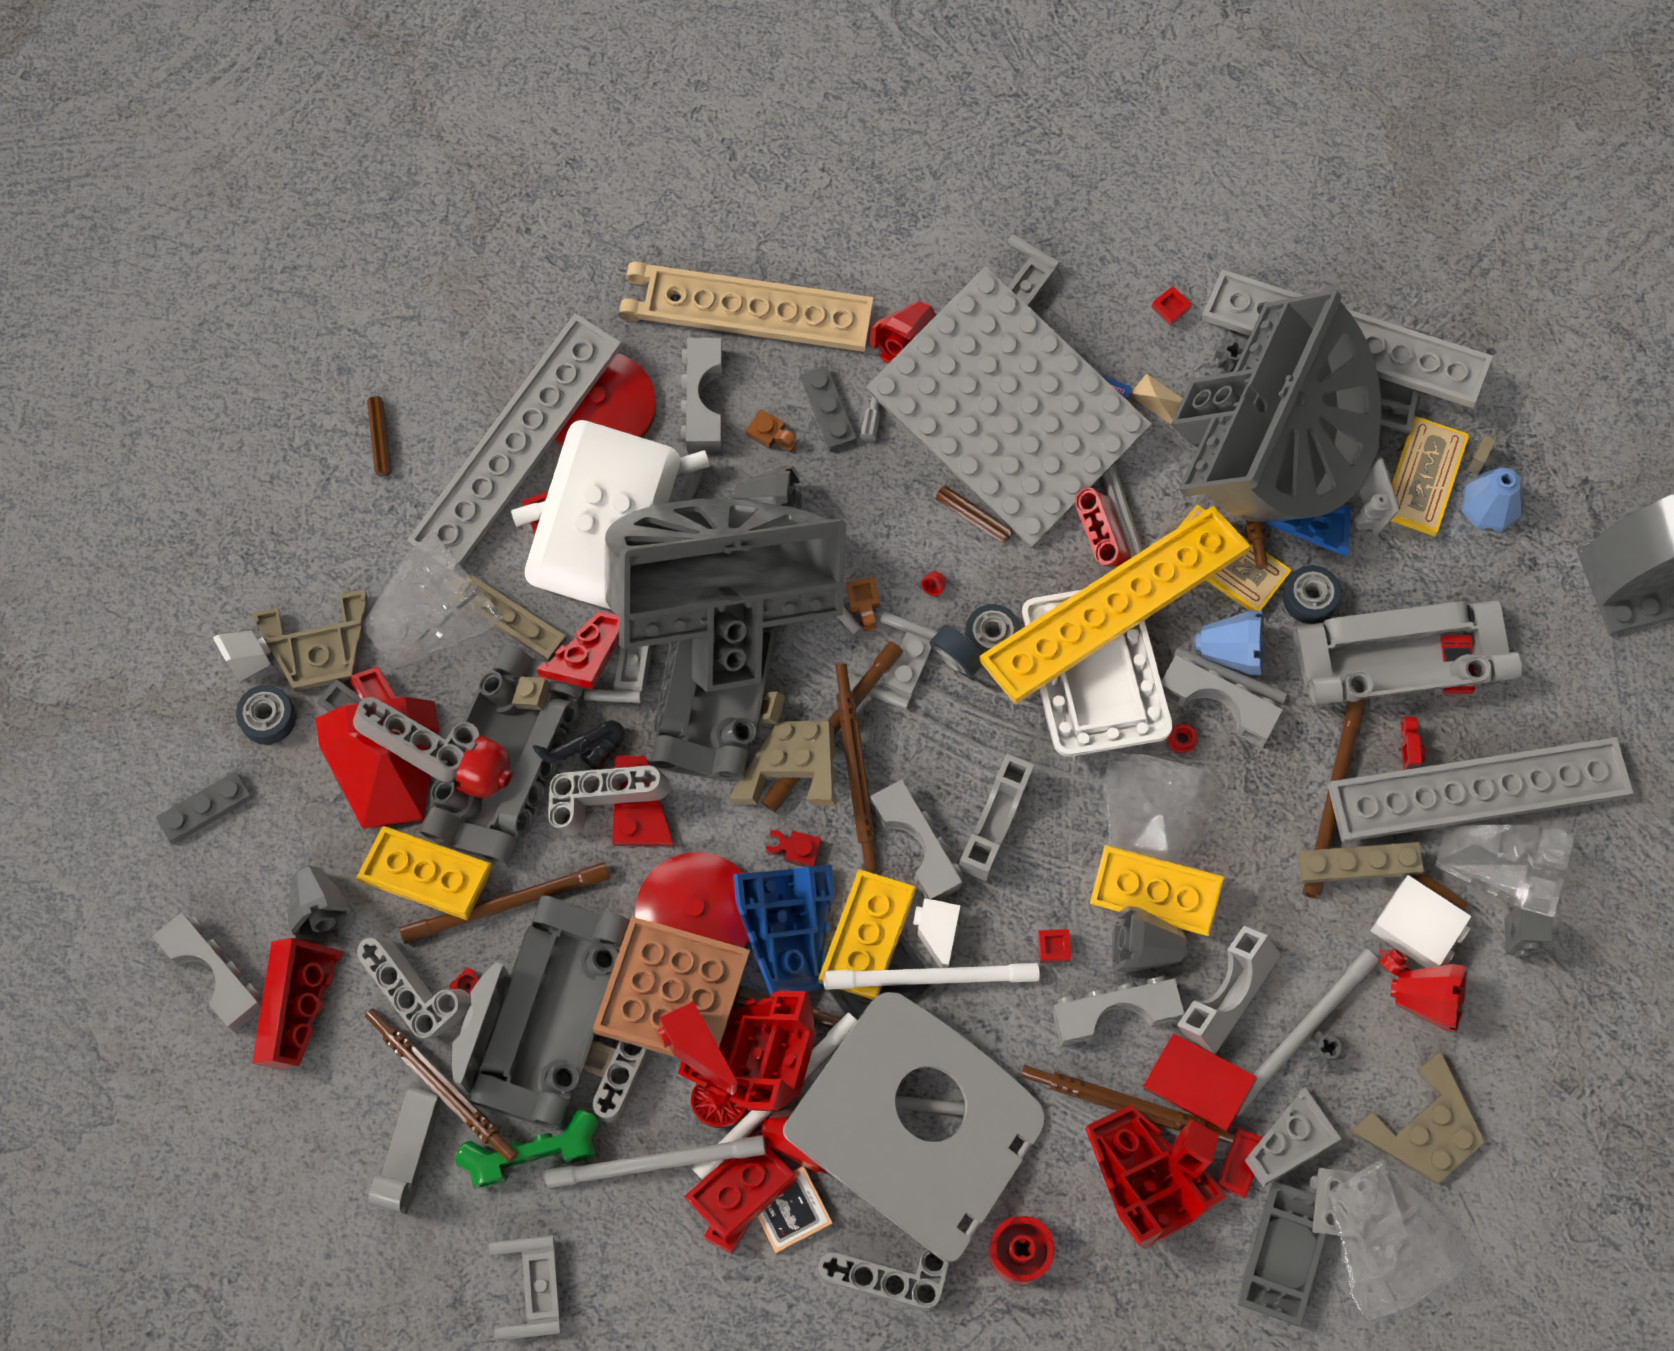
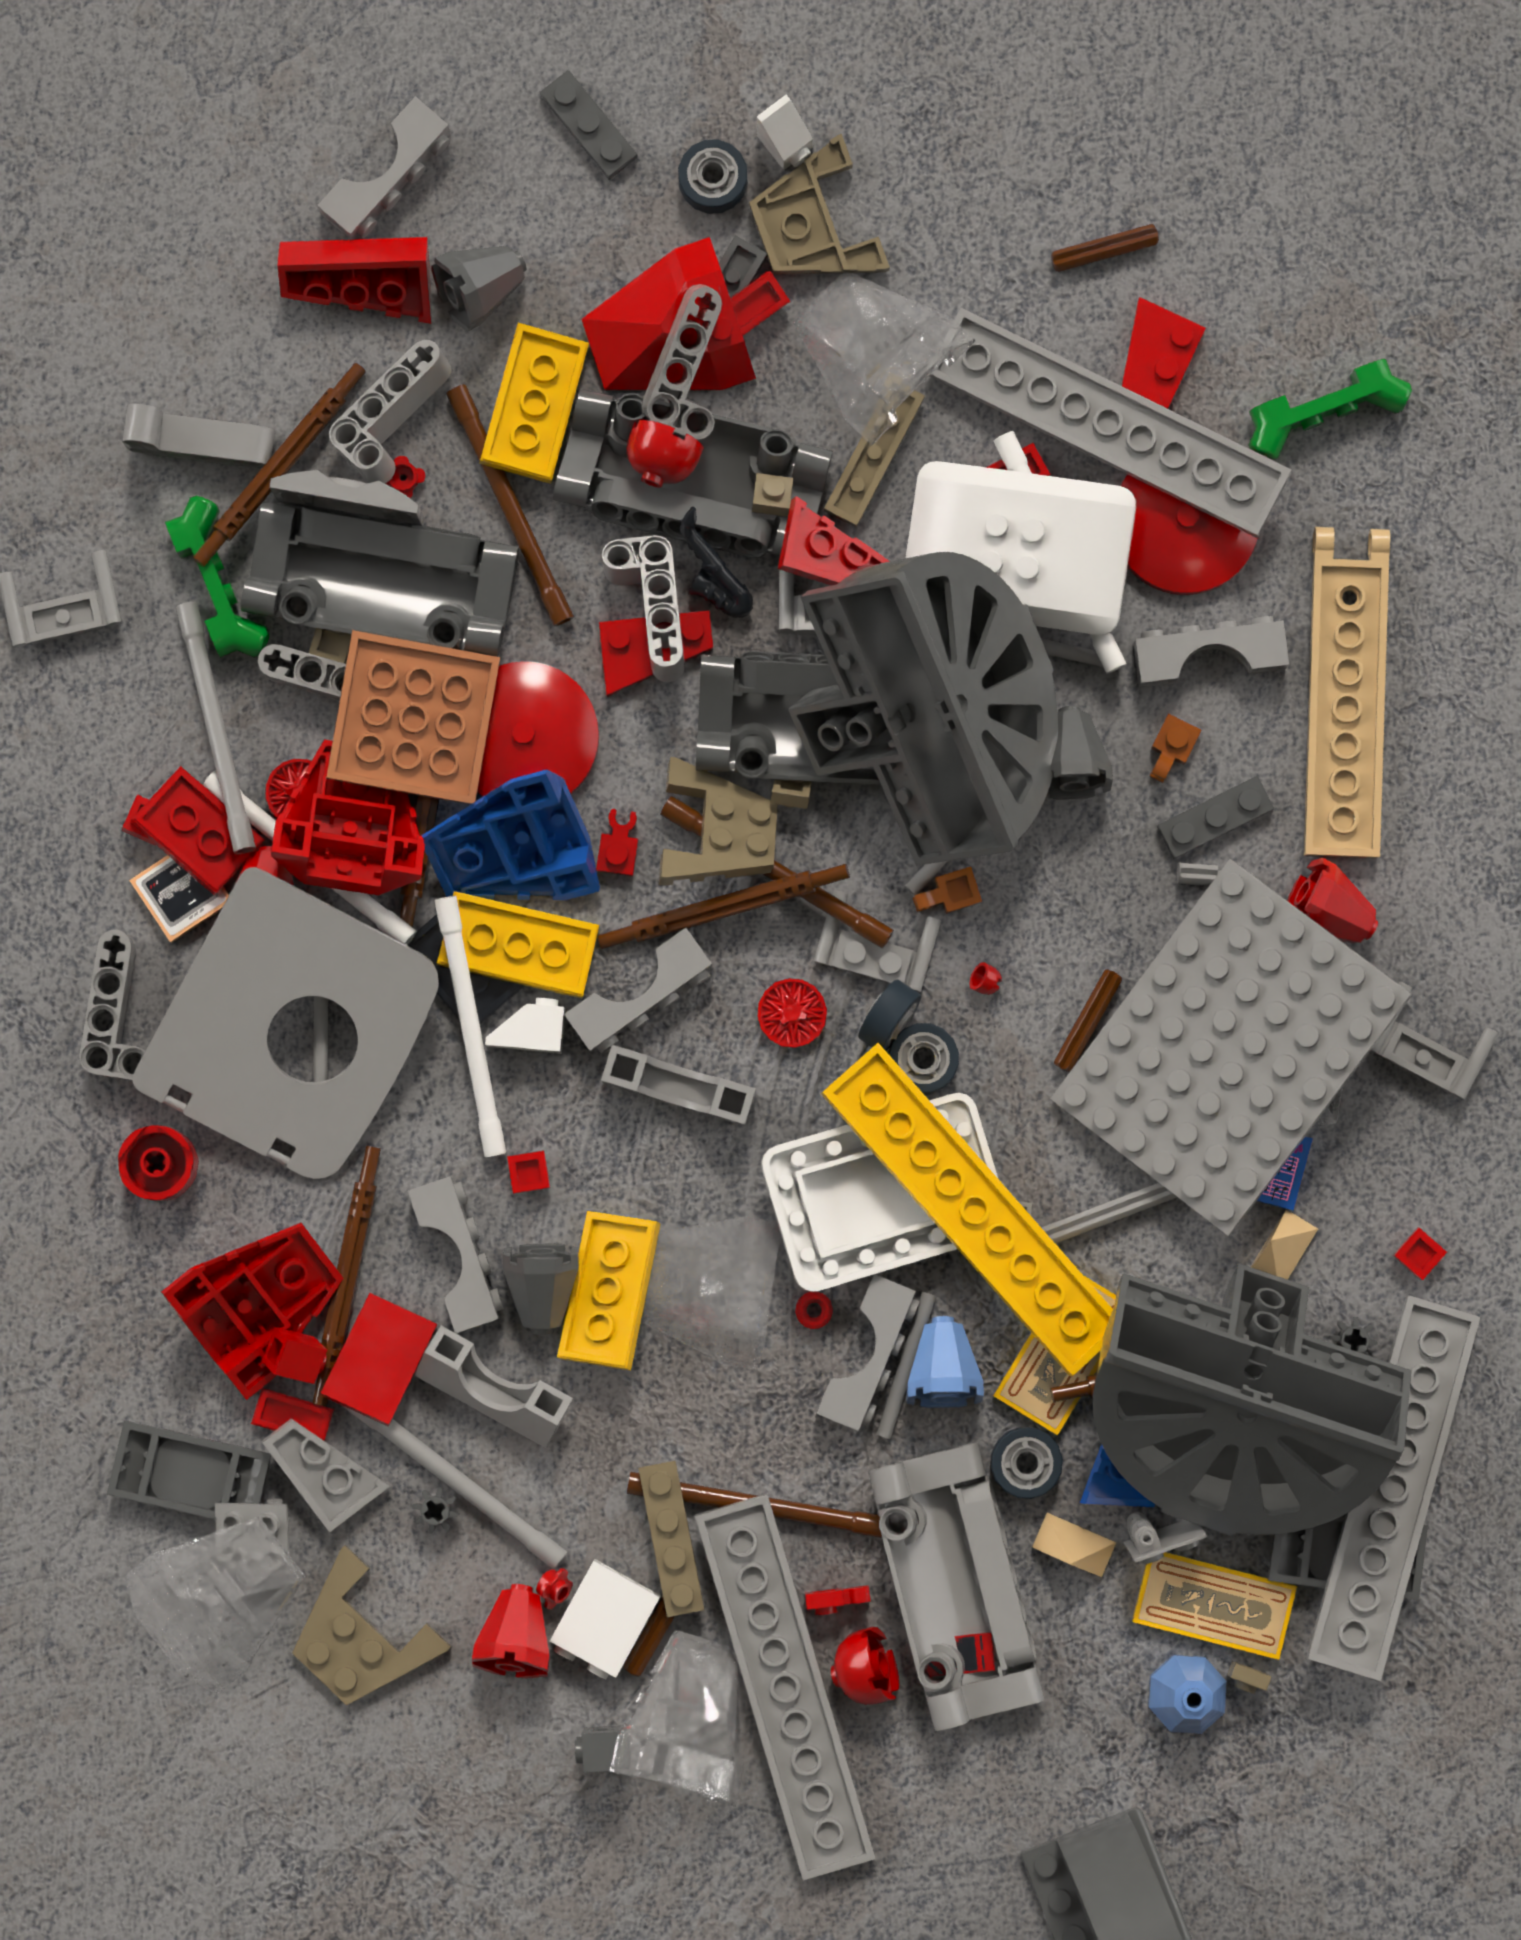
camera: 85 degrees right, 15 degrees up
(464, 406) = (1159, 352): none -> red wing
(517, 264) = (1370, 383): none -> green plate
(694, 1045) = (347, 747): red slope -> none
(945, 729) = (792, 1013): none -> red wheel
(1093, 524) = (1082, 1186): red beam -> none
(1375, 570) = (1074, 1545): none -> tan slope
(1468, 728) = (865, 1669): none -> red cylinder

